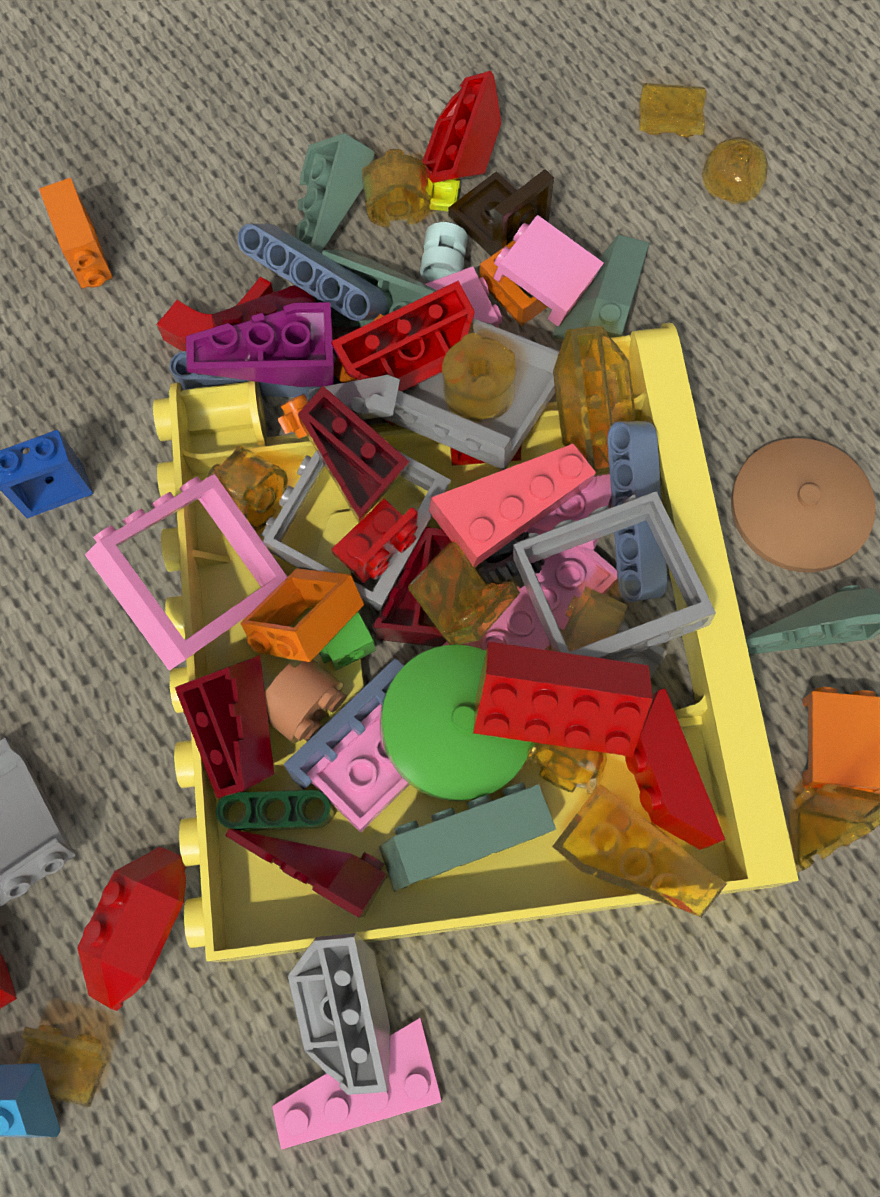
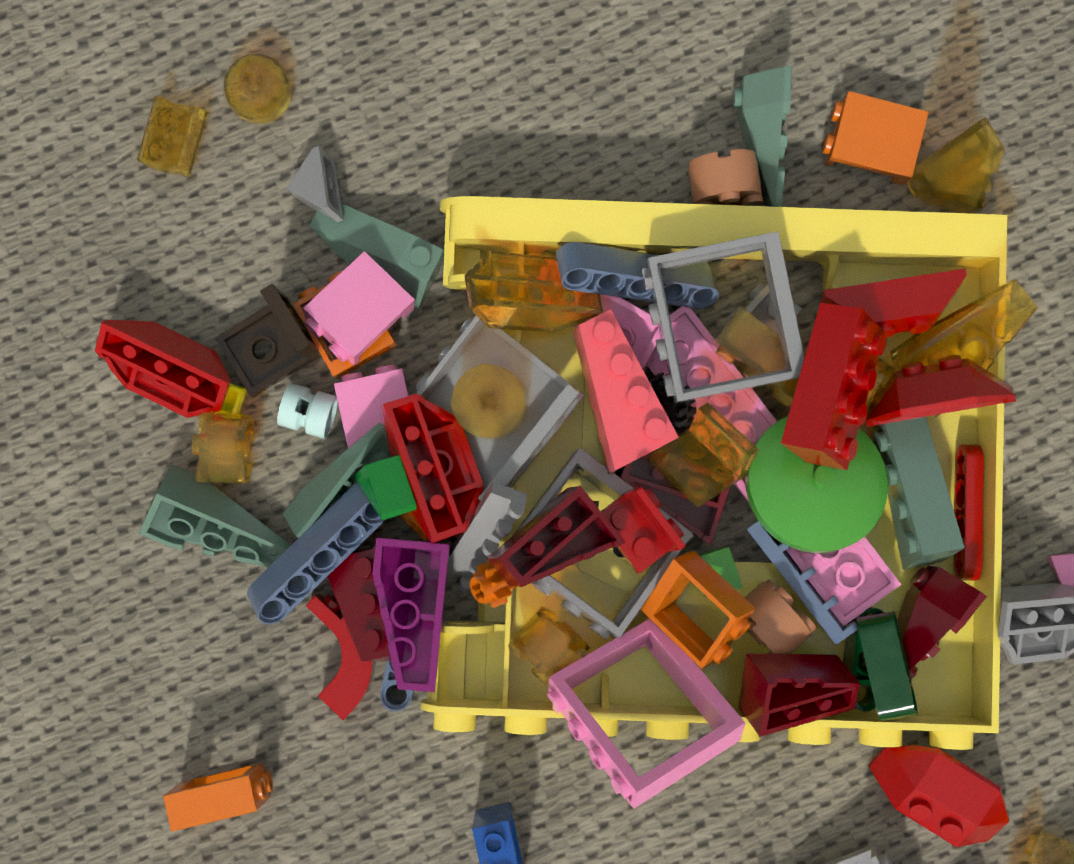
camera: 85 degrees left, 15 degrees up
(266, 820) = (887, 666): none -> dark green beam
(378, 298) = (387, 487): none -> green slope
(453, 906) = (969, 510): none -> red beam
(583, 830) = (937, 389): none -> red wedge
(659, 230) = (318, 184): none -> light grey slope
(761, 585) = (726, 179): none -> nougat brick
(803, 505) = (639, 115): medium nougat dish -> none

